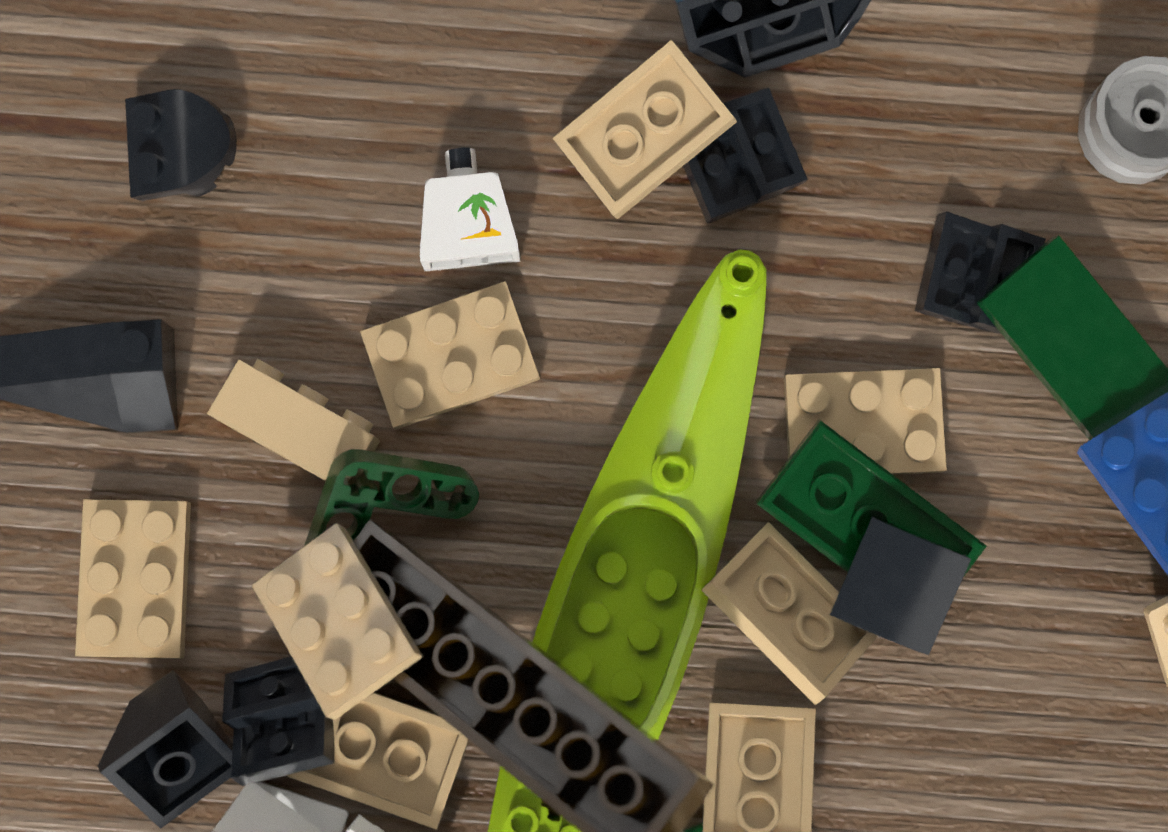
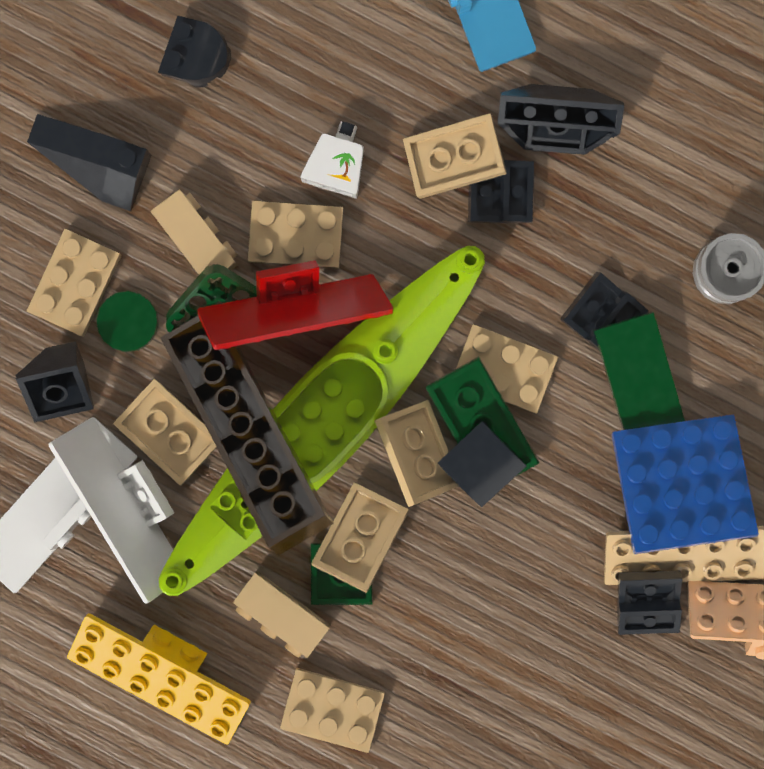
camera: 20 degrees right, 5 degrees up
(228, 608) = (127, 321): none -> dark green tile
(275, 722) = (121, 391): black slope -> none
(336, 621) = (172, 353): tan plate -> none
(490, 461) = (293, 303): none -> red bracket

